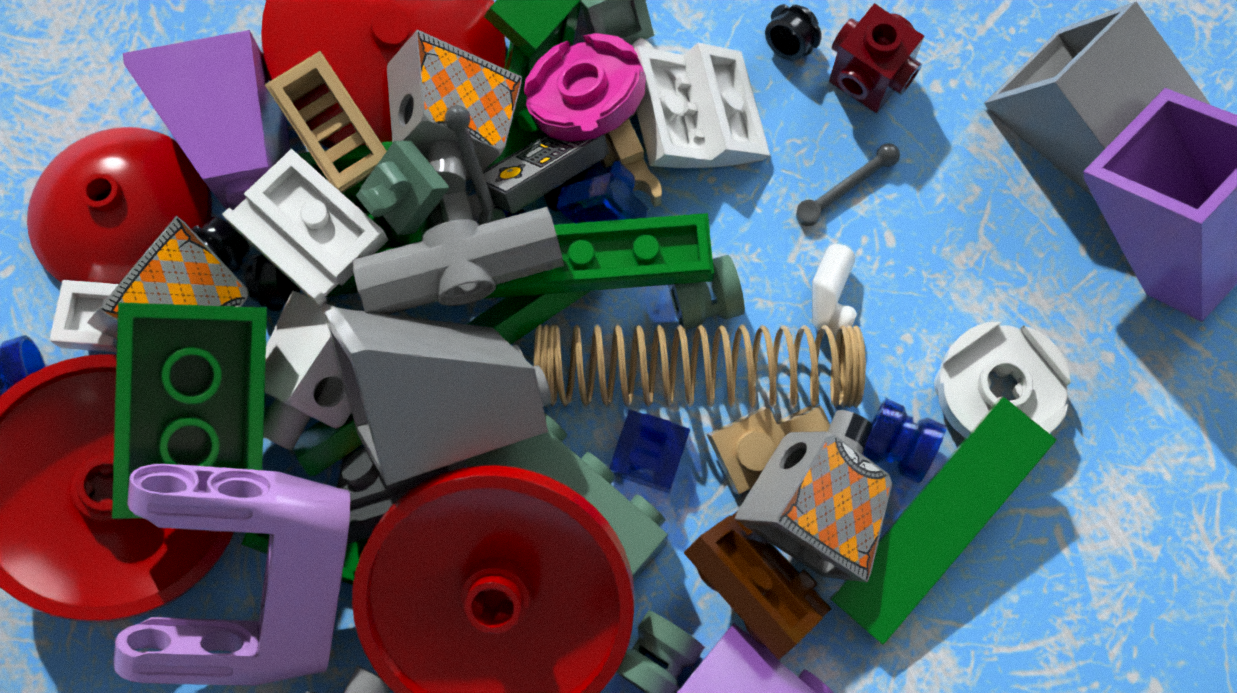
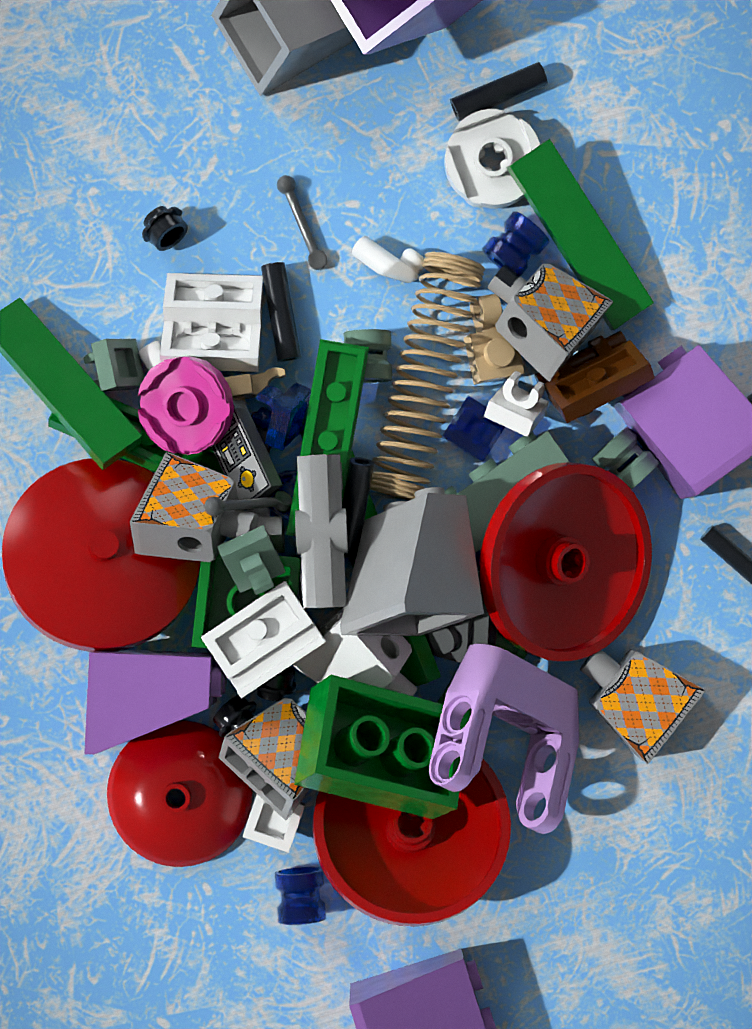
camera: 80 degrees left, 15 degrees up
(301, 81) = (138, 621): tan slope -> none
(511, 305) = (356, 500): none -> black piece
(690, 491) = (516, 407): none -> white tile
(733, 183) = (280, 311): none -> black piece
(876, 57) = (214, 187): dark red brick -> none
(1095, 377) = (499, 91): none -> black piece

